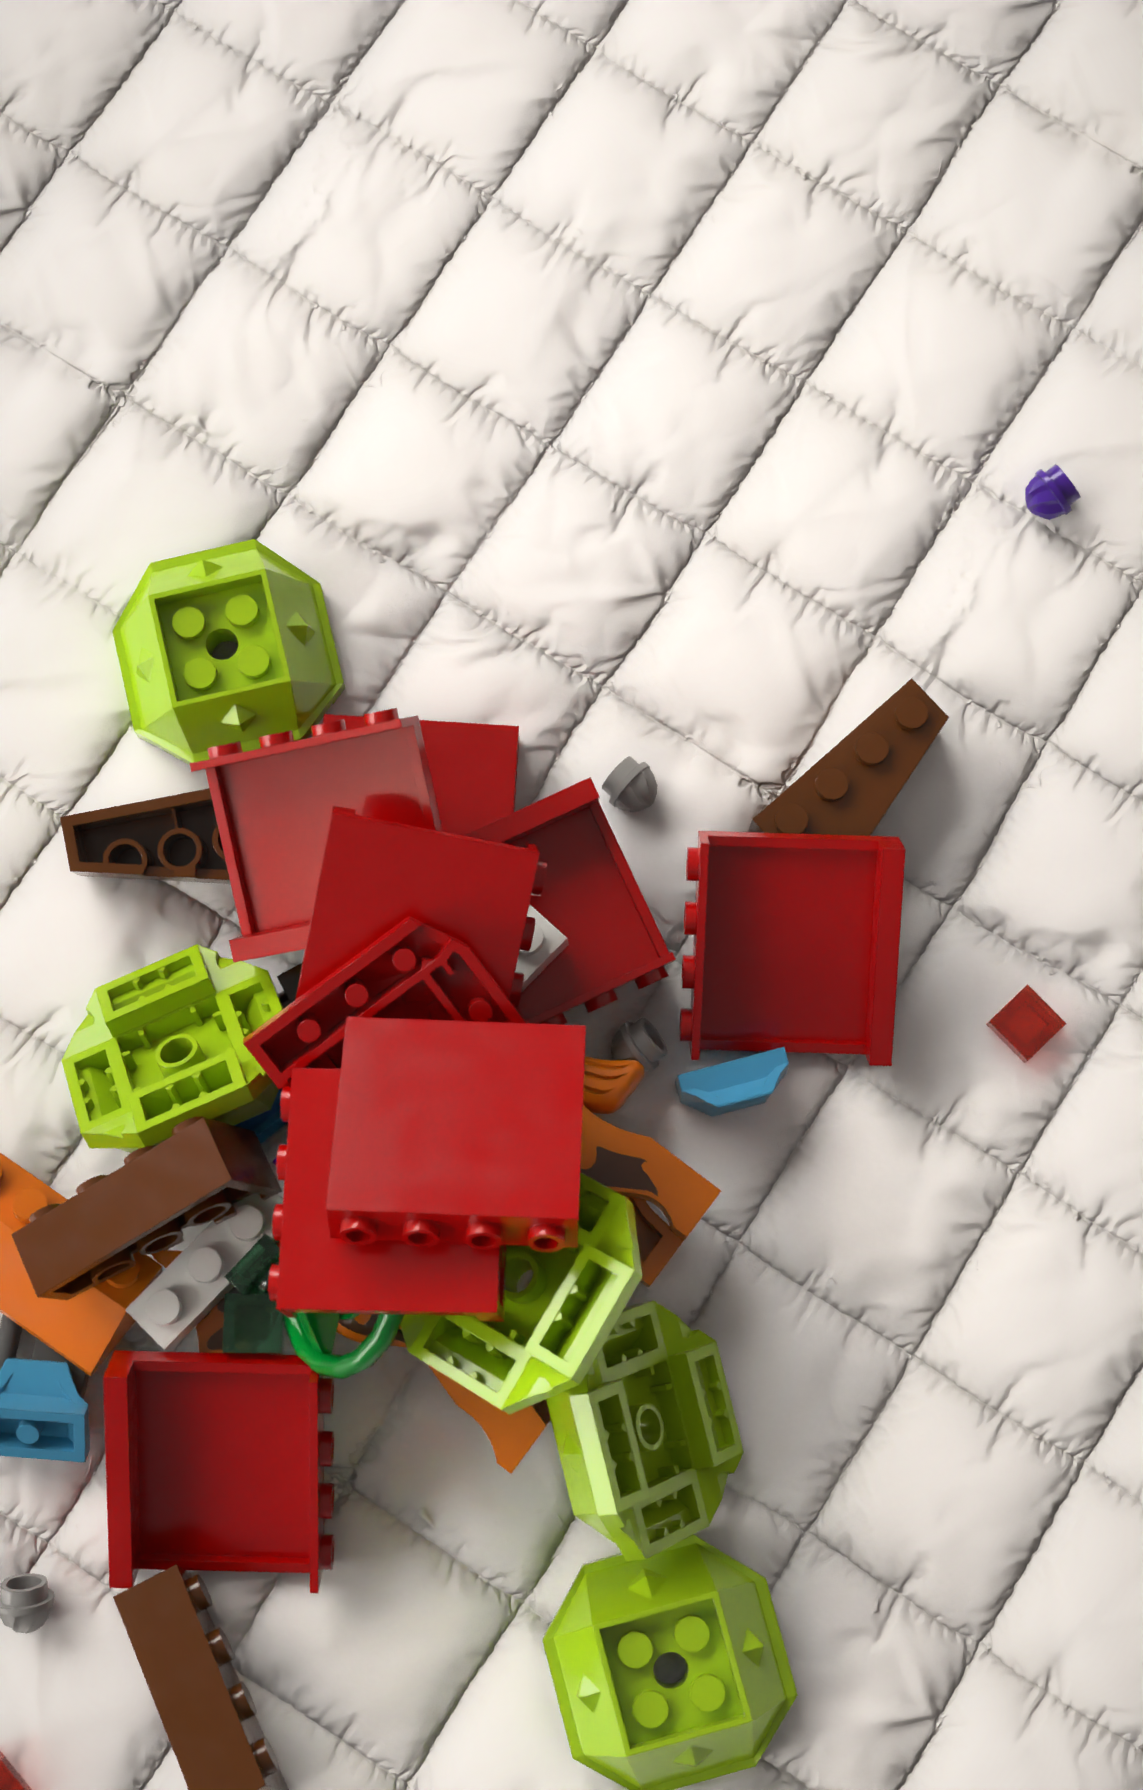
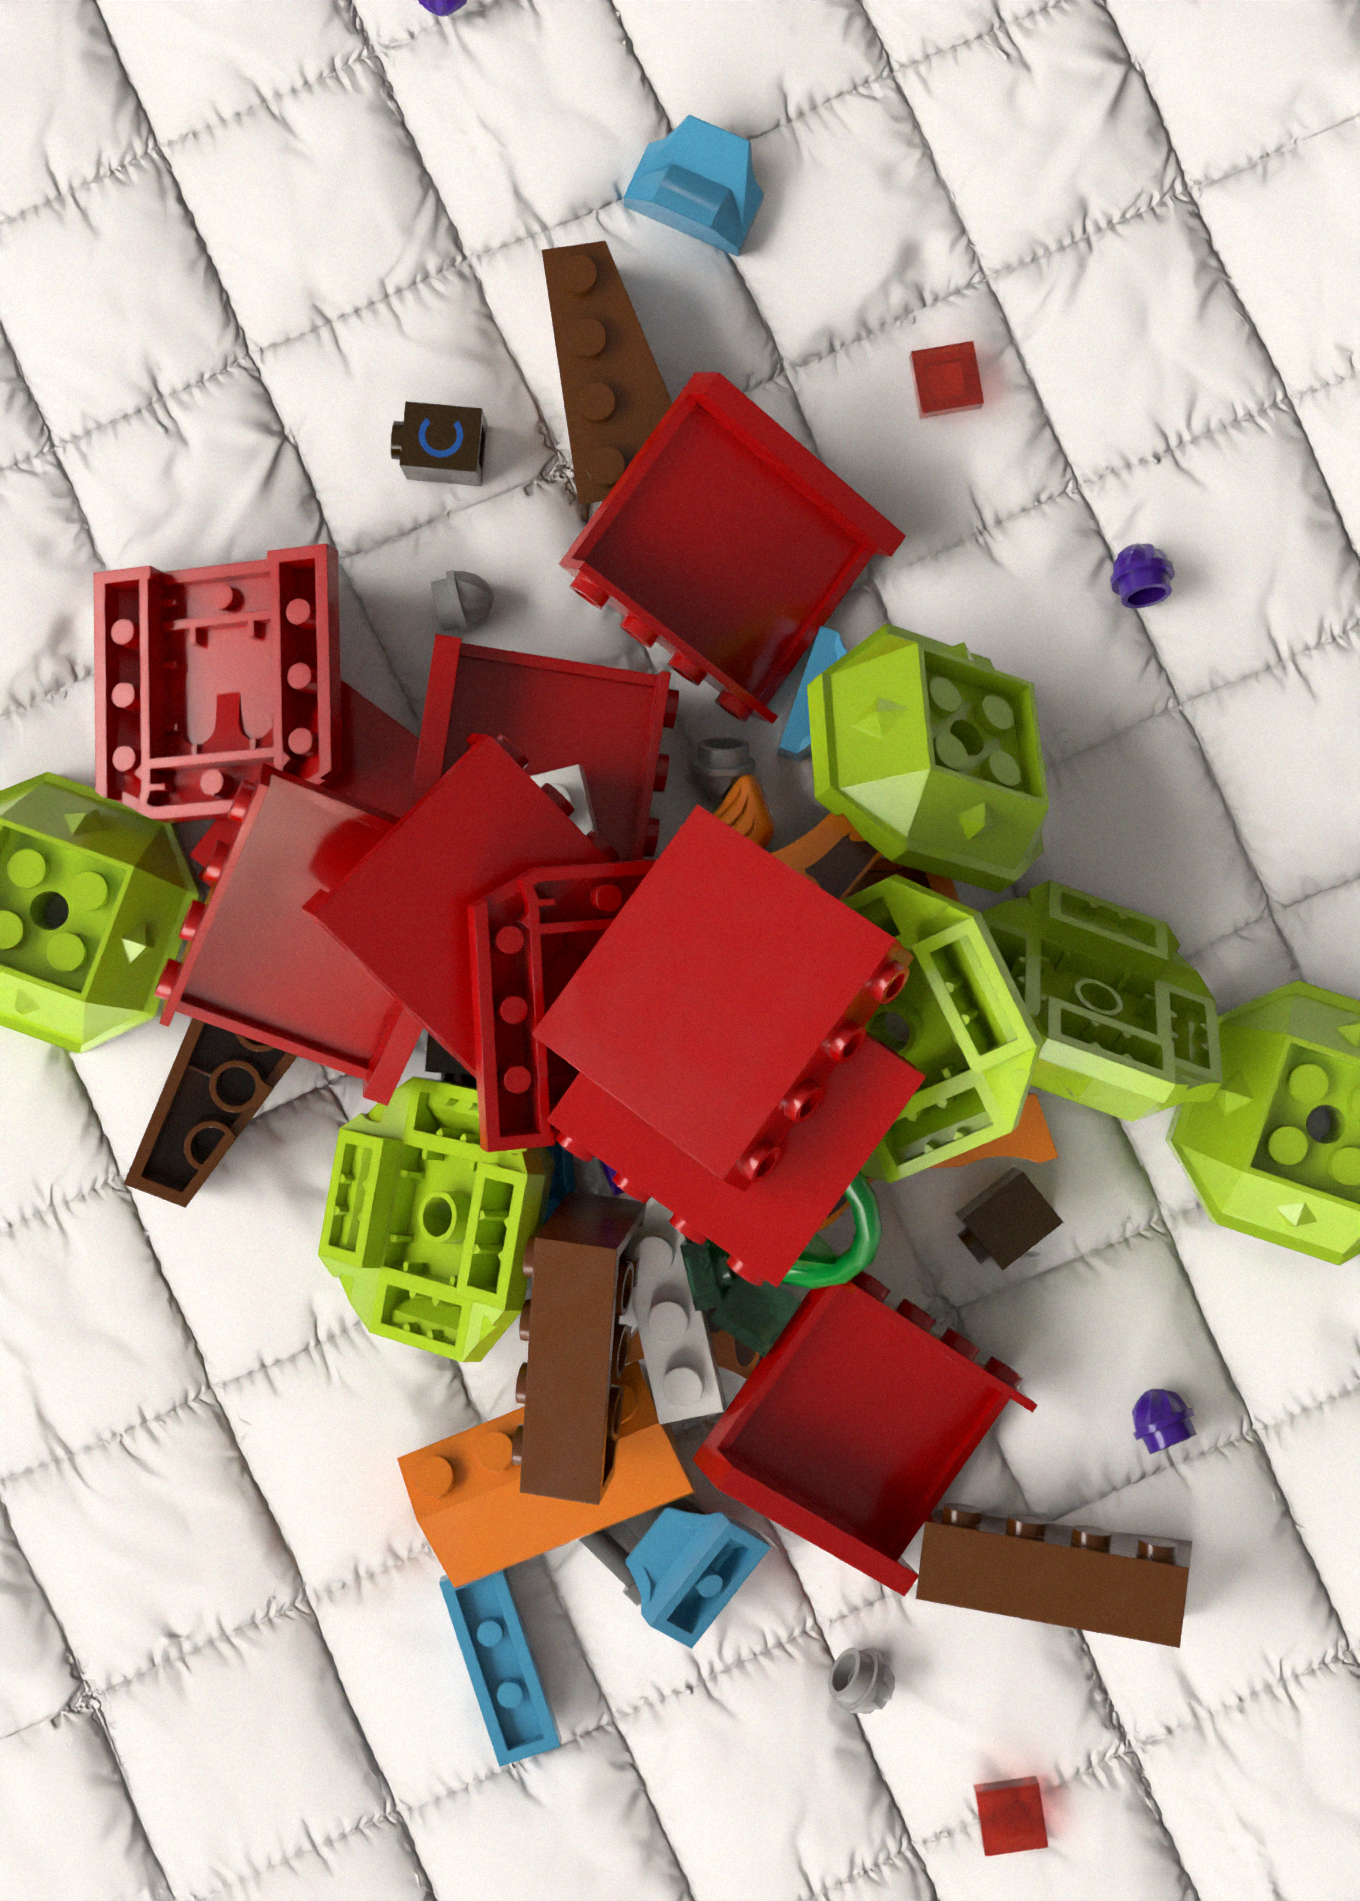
camera: 55 degrees left, 10 degrees up
(367, 1702) = (1162, 1419): none -> dark purple plate
(441, 1477) = (1006, 1220): none -> dark brown brick
(461, 652) = (214, 678): none -> red wedge
(731, 700) = (440, 443): none -> dark brown brick
(740, 1185) = (931, 757): none -> lime piece
(983, 1260) = (1142, 576): none -> dark purple plate
(1038, 759) = (698, 184): none -> dark azure slope

